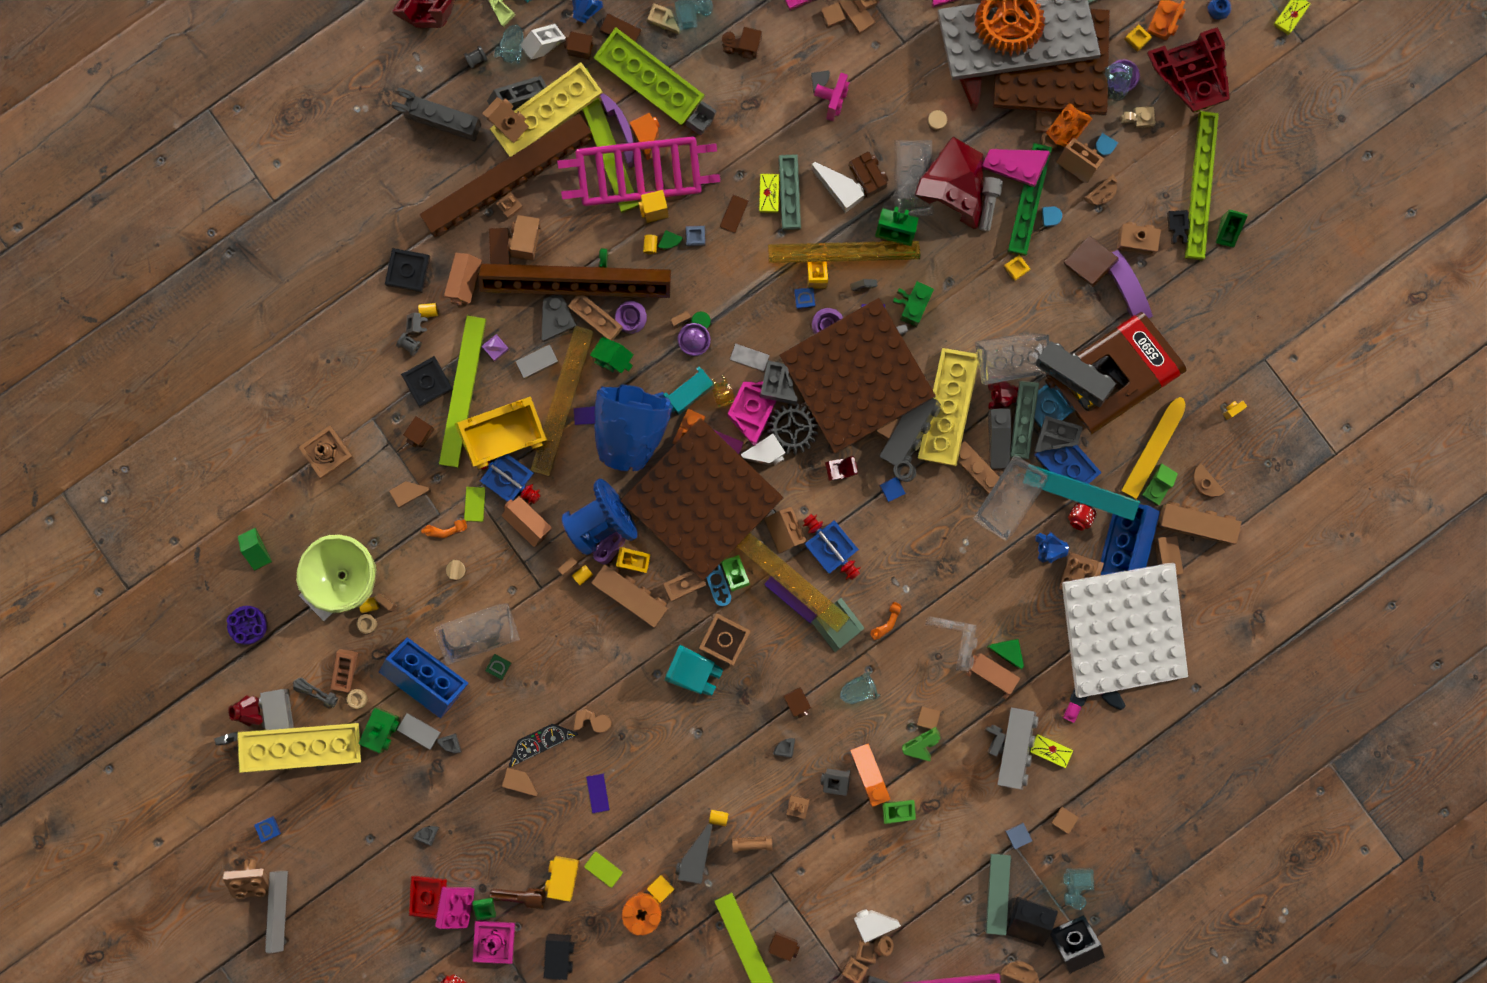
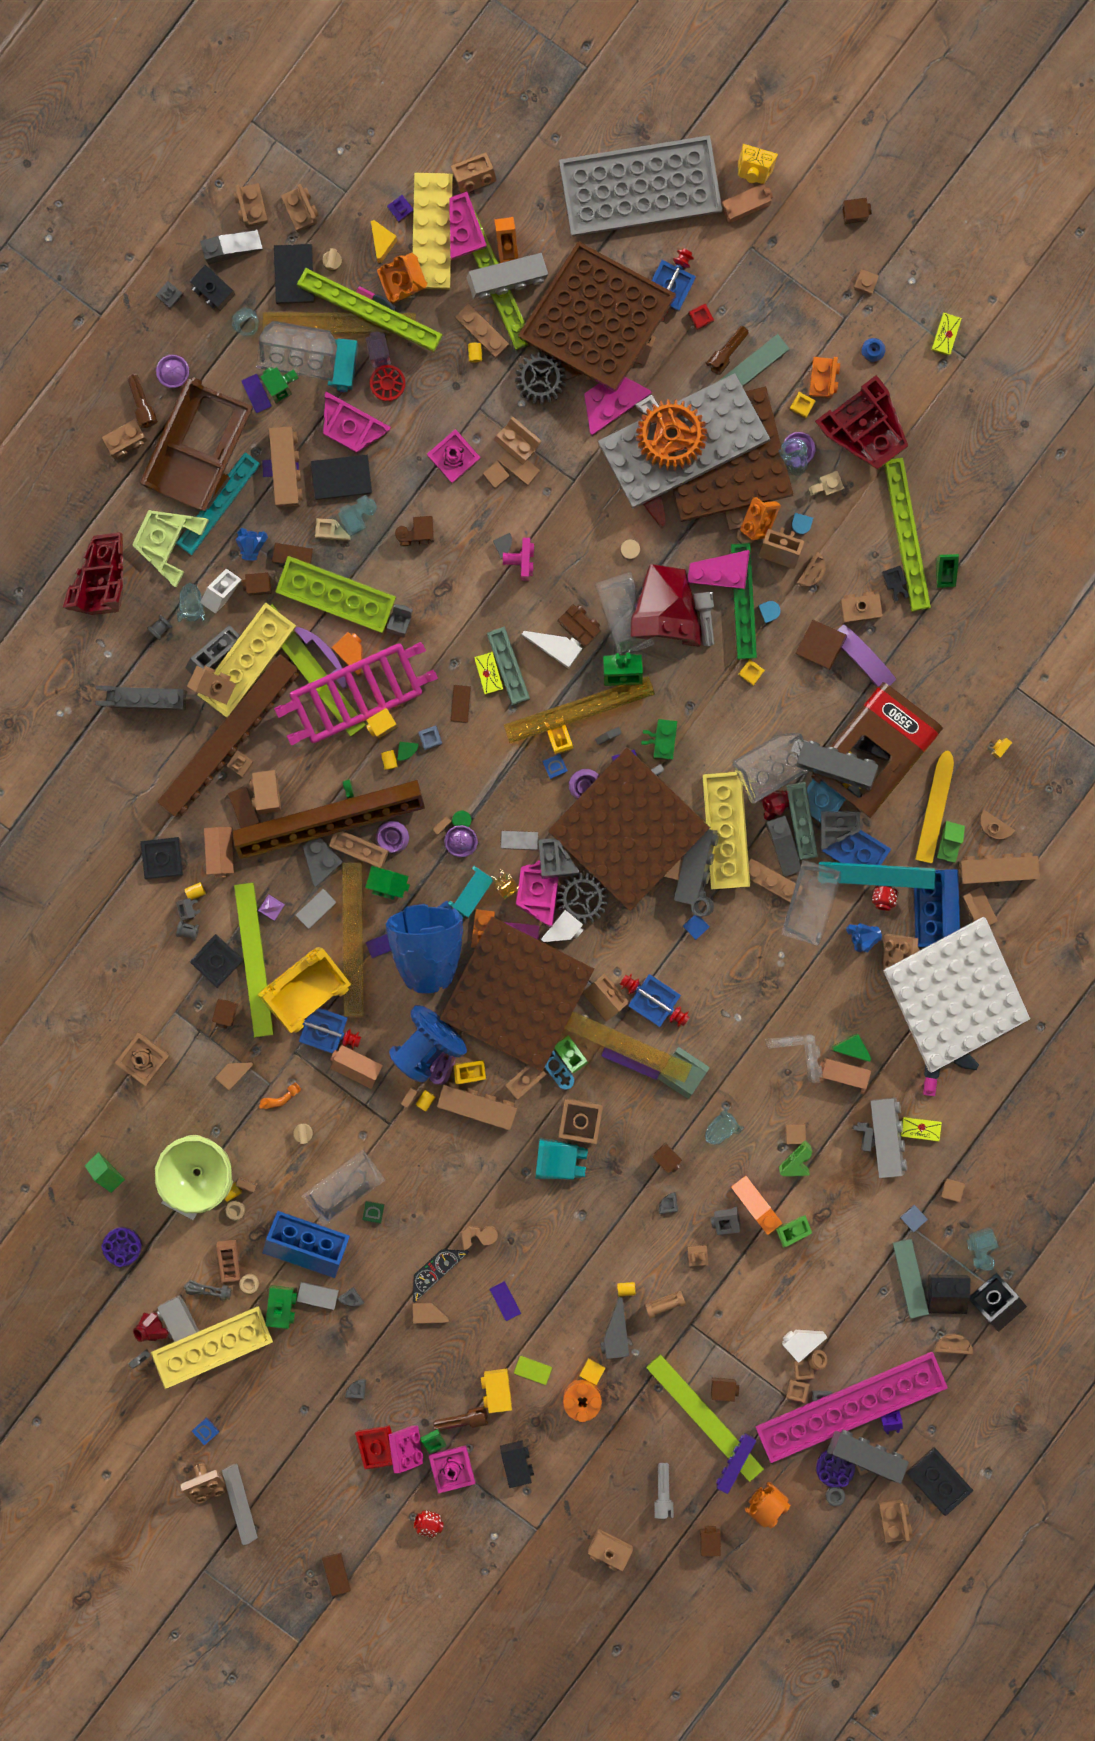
camera: 15 degrees left, 5 degrees up
(474, 504) = (300, 1064): lime sticker -> none
(841, 468) = (641, 922): dark red bracket -> none
(878, 632) = (733, 1040): orange piece -> none

